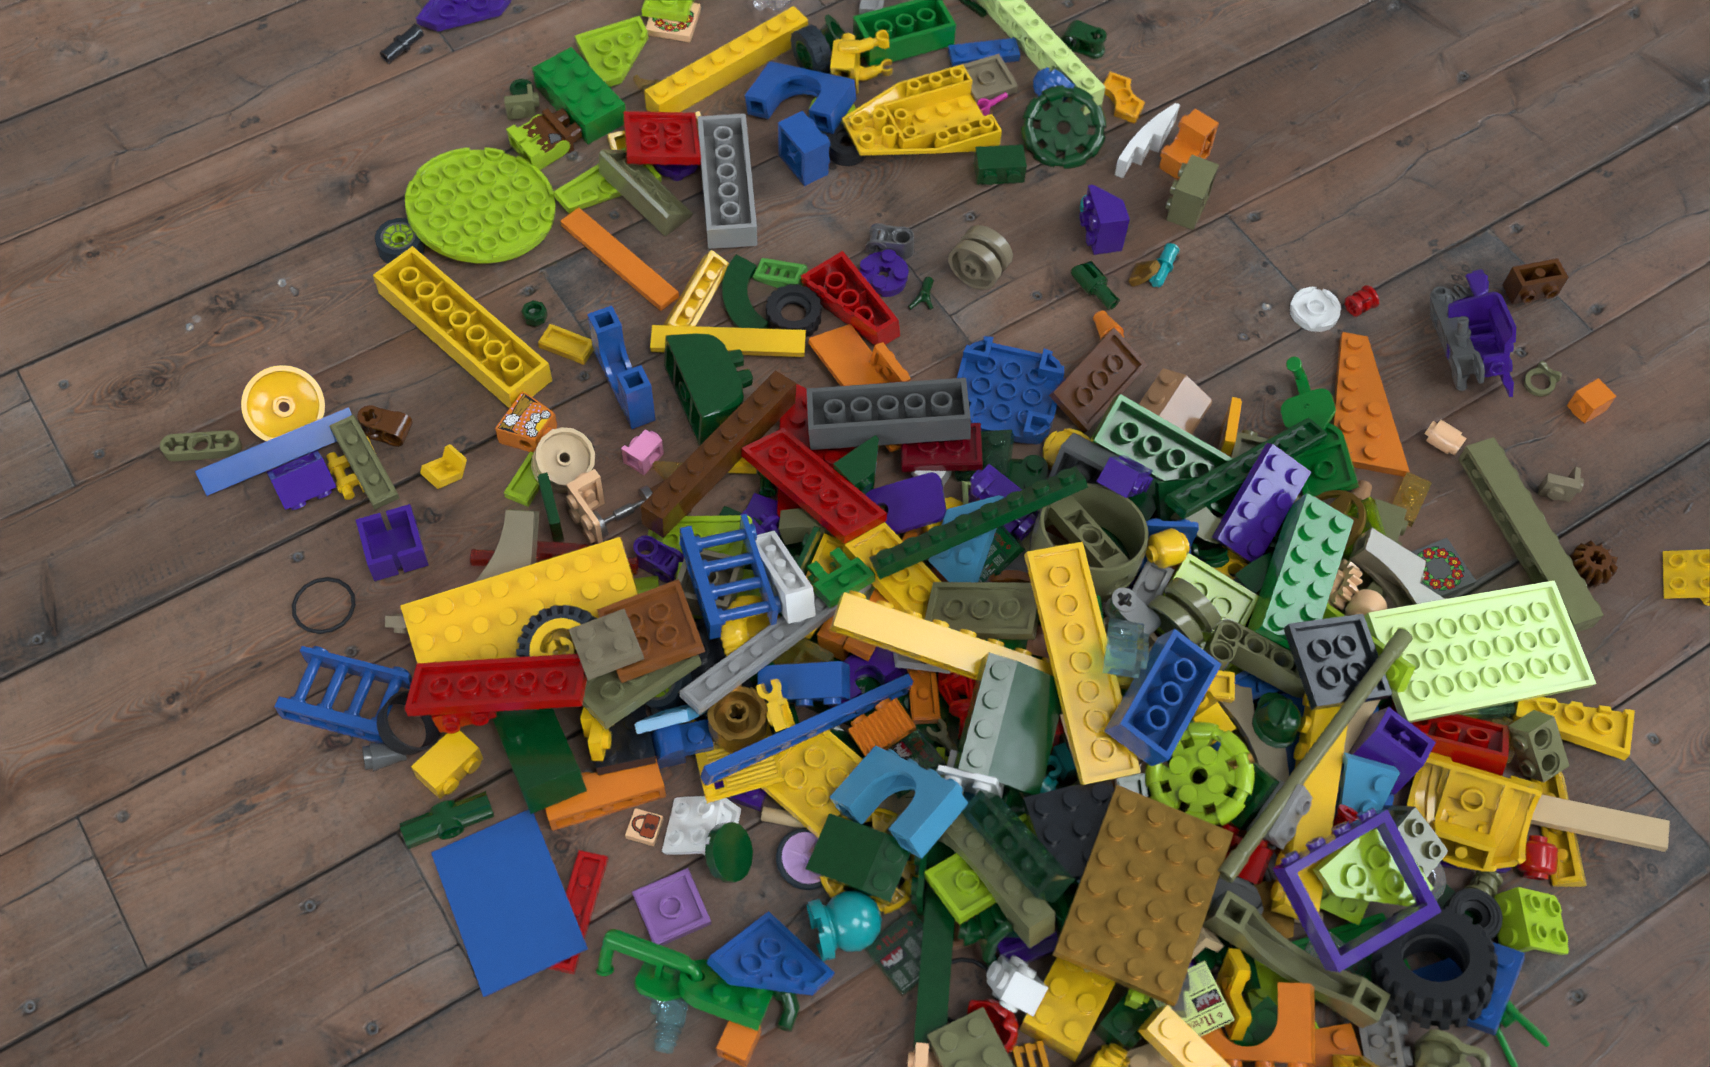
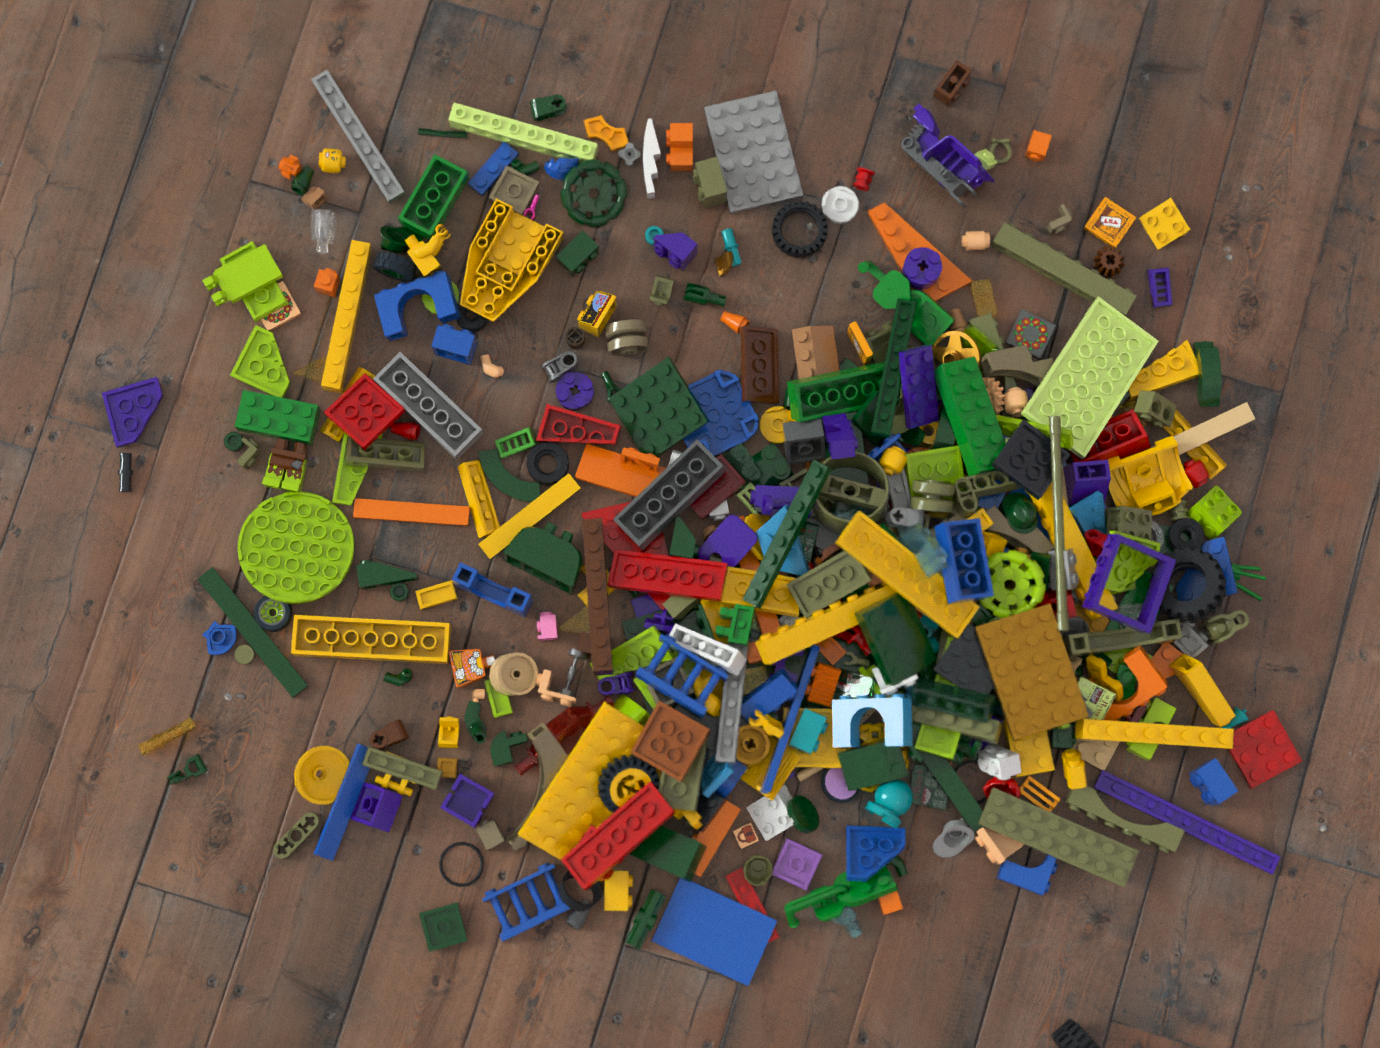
camera: 40 degrees left, 20 degrees up
(157, 307) = (175, 778): none -> dark green piece
(179, 265) = (170, 734): none -> clear yellow pin
(237, 647) = (443, 927): none -> dark green plate
(330, 227) = (220, 638): none -> blue animal
(336, 257) = (244, 654): none -> olive tile
(363, 248) = (252, 632): none -> dark green tile
(380, 596) = (490, 834): none -> dark tan brick
(413, 497) = (448, 766): none -> pearl gold tile
(452, 388) = (400, 679): none -> dark green arm
(478, 525) = (501, 744): none -> dark green brick
(483, 473) = (473, 722): none -> dark green arm
(529, 282) = (377, 575): none -> dark green slope
(550, 507) = (535, 708): dark green tile -> none
(606, 644) = (657, 769): dark tan plate -> none
(620, 871) = (757, 870): none -> olive hair
(688, 190) = (408, 430): none -> red cone
(736, 24) = (327, 282): none -> orange brick
(816, 760) = (808, 731): none -> teal brick
(819, 197) = (489, 368): none -> light nougat arm
(880, 1033) = (954, 838): none -> light grey piece
(928, 228) = (575, 342): none -> dark brown wheel
(955, 337) = (659, 409): none -> dark green plate
(958, 221) = (597, 313): none -> slope
(1018, 74) = (523, 168): none -> dark green arm
(1056, 250) = (661, 290): none -> olive bracket
(1129, 118) = (634, 154): none -> light grey plate
(1259, 276) = (802, 207): none -> black tyre
(1260, 207) = (753, 152): none -> light grey plate
(1361, 411) = (932, 268): none -> dark purple brick
(1520, 373) = (986, 158): none -> yellowish green plate
(1623, 529) = (1109, 222): none -> tile
(1635, 763) = (1209, 374): none -> dark green arch
(1651, 617) = (1153, 288): none -> dark purple slope

